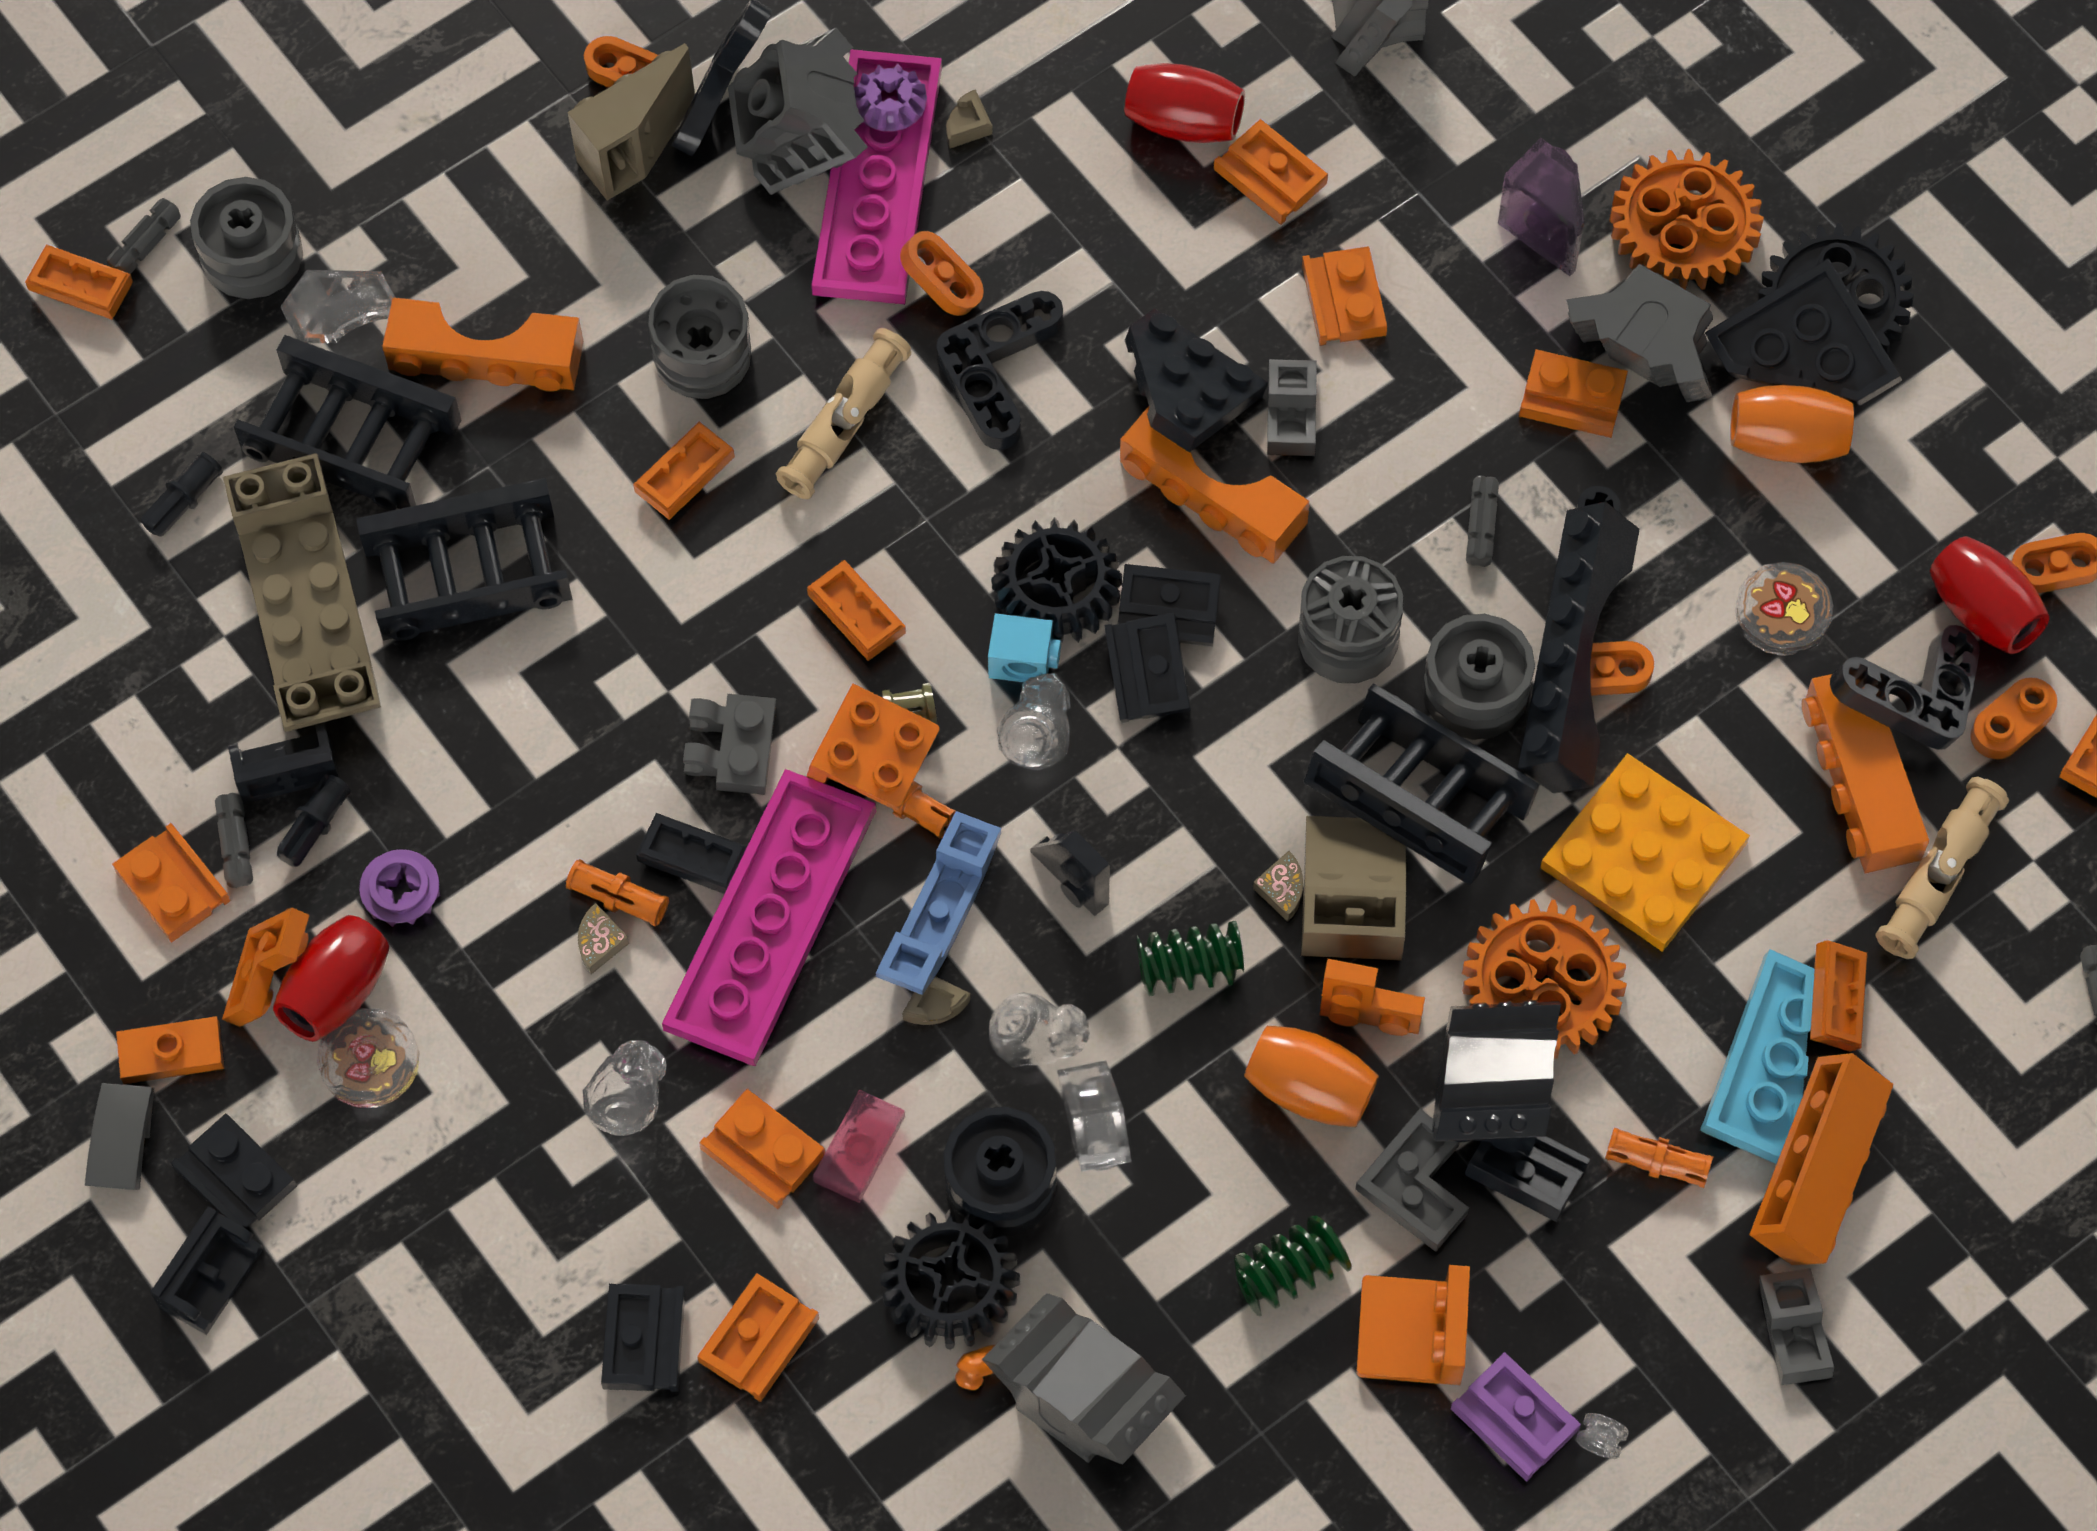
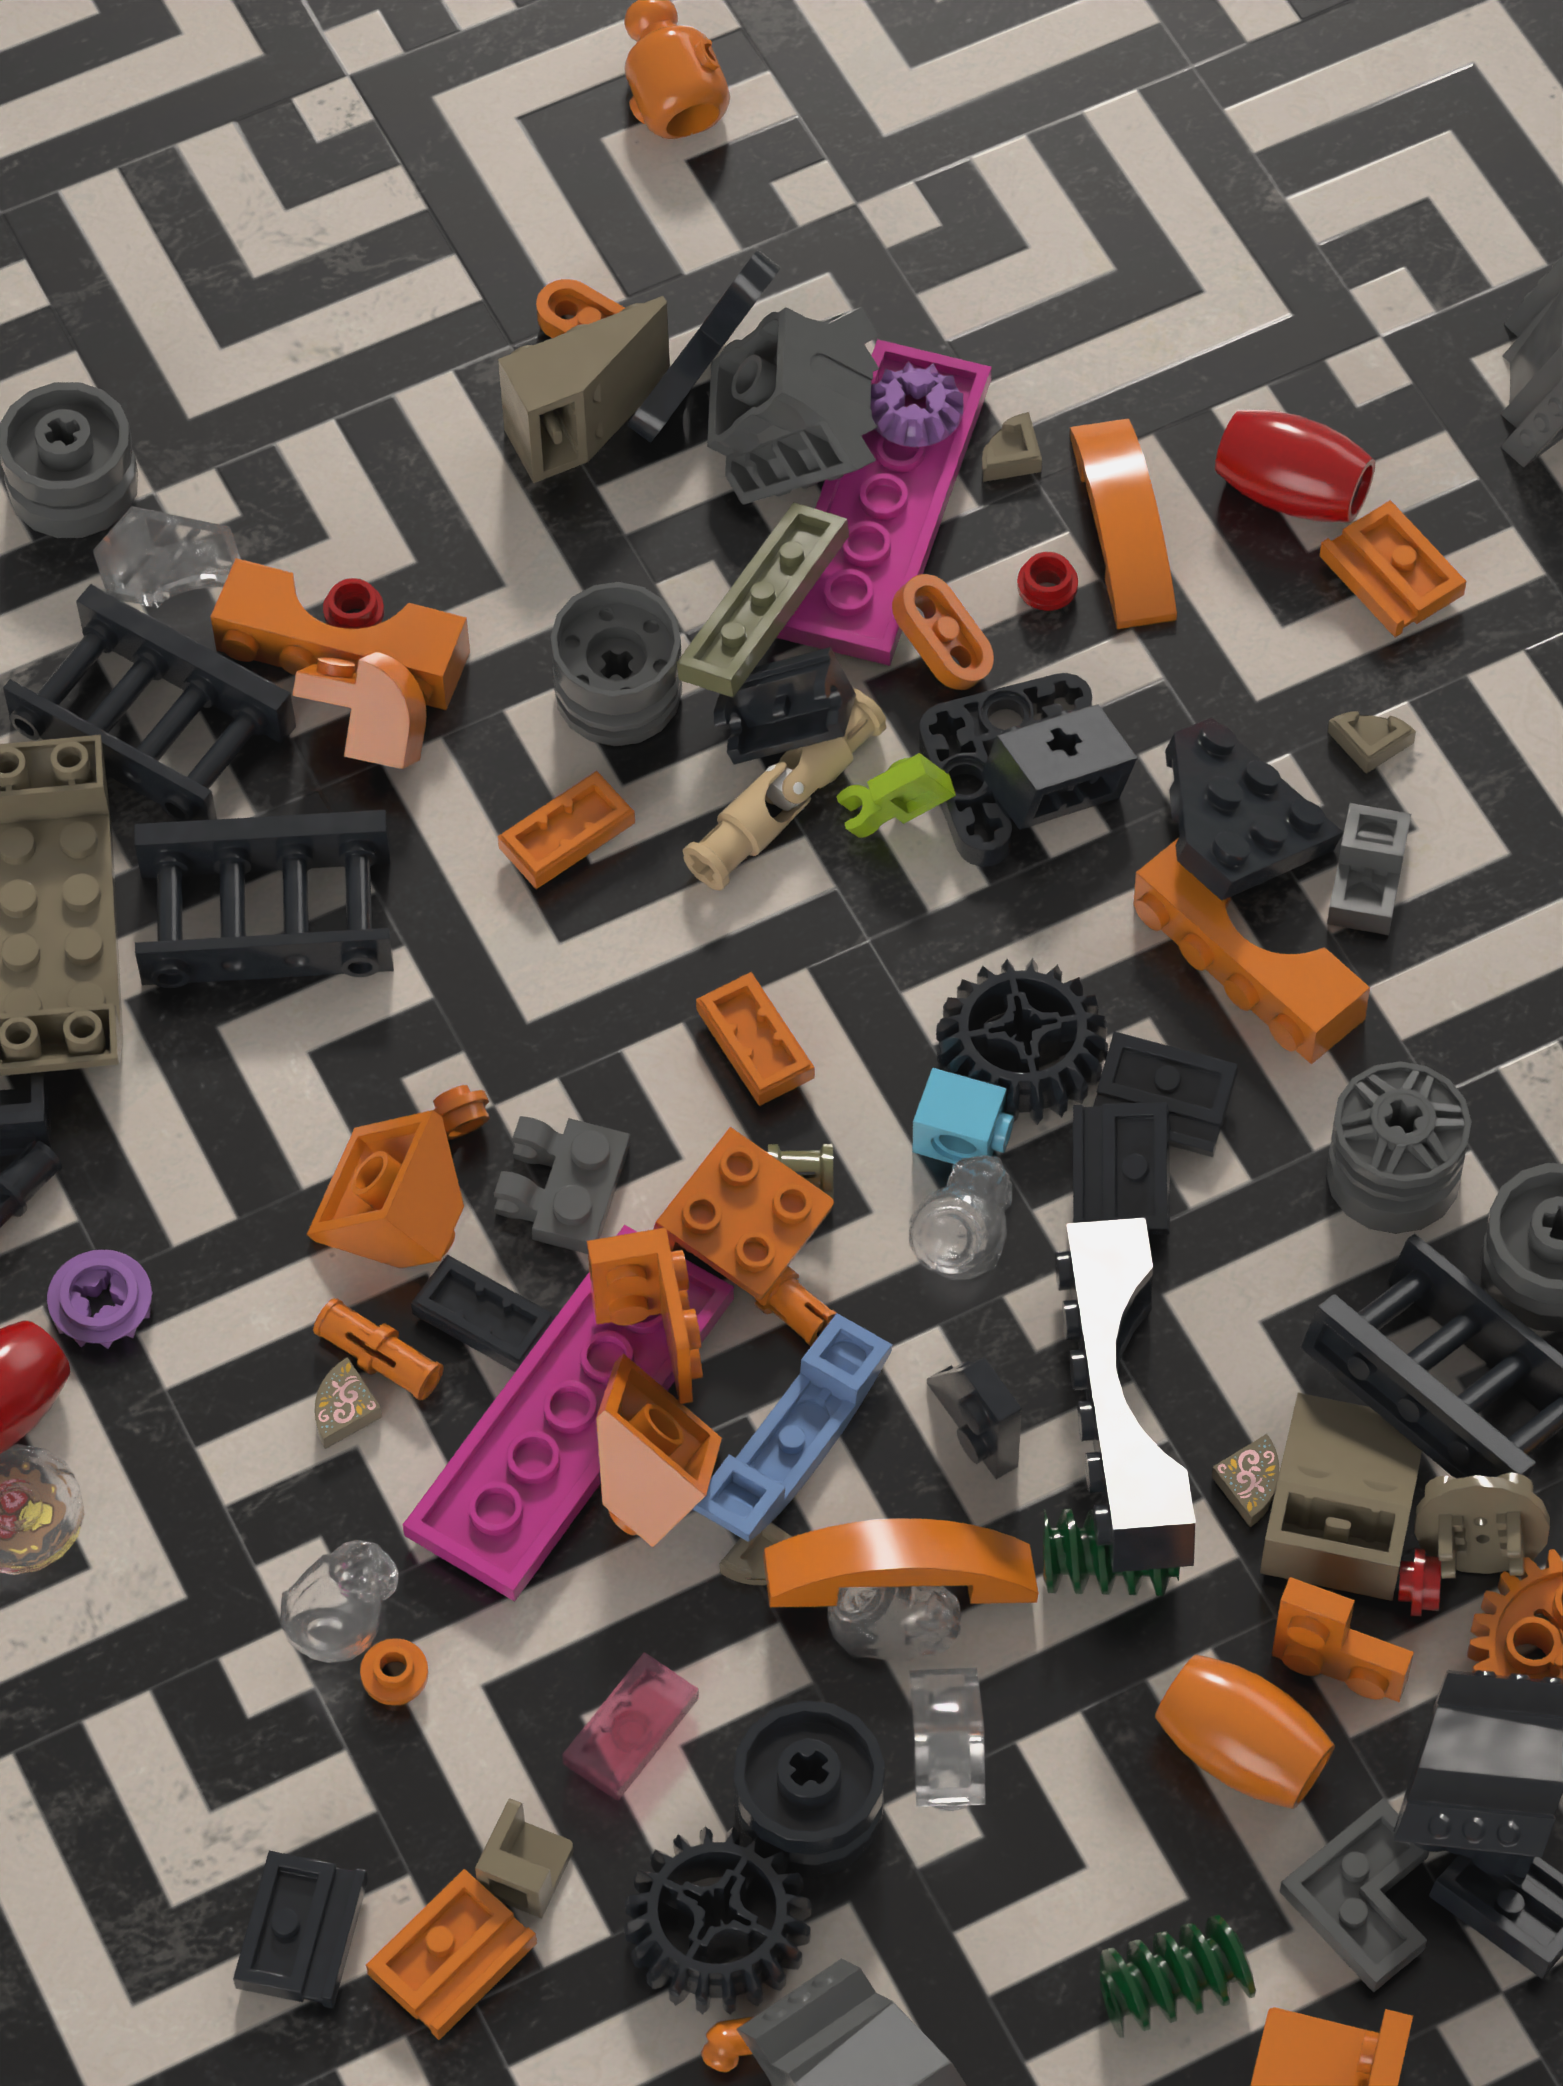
camera: 10 degrees right, 5 degrees down
(484, 311) = (349, 595): none -> red plate
(529, 397) = (384, 704): none -> orange brick
(606, 772) = (393, 1194): none -> orange slope
(644, 702) = (461, 1110): none -> orange plate
(680, 1147) = (396, 1689): none -> orange plate
(762, 1148) = (504, 1709): orange plate -> none
(798, 1260) = (523, 1862): none -> dark tan panel
(802, 270) = (762, 599): none -> olive plate
(810, 808) = (641, 1278): none -> orange bracket
(833, 350) = (787, 706): none -> black hinge
(839, 941) = (651, 1454): none -> orange slope
(933, 404) = (901, 792): none -> lime plate
(1010, 210) = (1047, 568): none -> red plate
(1035, 986) = (899, 1554): none -> orange slope
(1047, 365) = (1058, 766): none -> black brick
(1064, 164) = (1126, 522): none -> orange slope
(1209, 912) = (1143, 1491): none -> arch
(1276, 305) = (1370, 738): none -> dark tan tile
(1344, 295) = (1463, 738): orange plate -> none
(1420, 944) = (1420, 1582): none -> red plate
(1458, 894) = (1481, 1523): none -> dark tan plate

